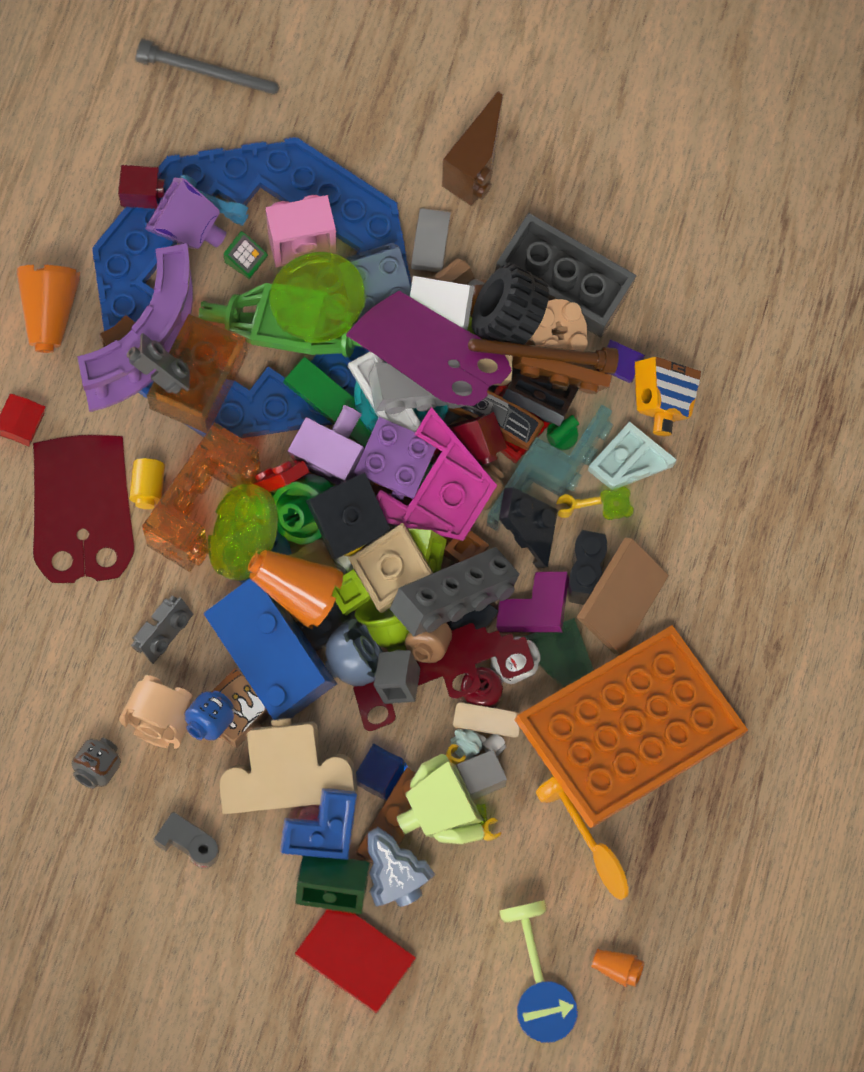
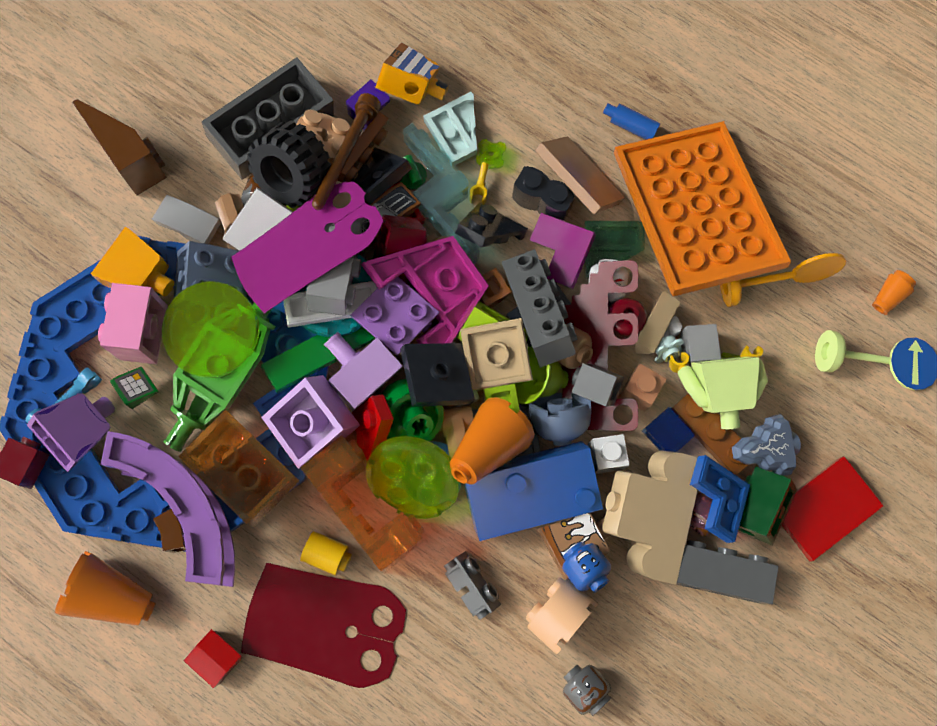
camera: 75 degrees left, 5 degrees up
(171, 372) = (236, 492): dark grey hinge -> none
(189, 839) = (683, 624): dark grey leg -> none
(252, 864) = (727, 573): none -> dark grey brick
(265, 416) = (309, 419): none -> lavender brick
(333, 714) = (609, 453): none -> white brick
(360, 210) = (133, 263): none -> light orange torso
(414, 728) = (643, 387): none -> nougat brick
(711, 636) = (632, 121): none -> blue cylinder

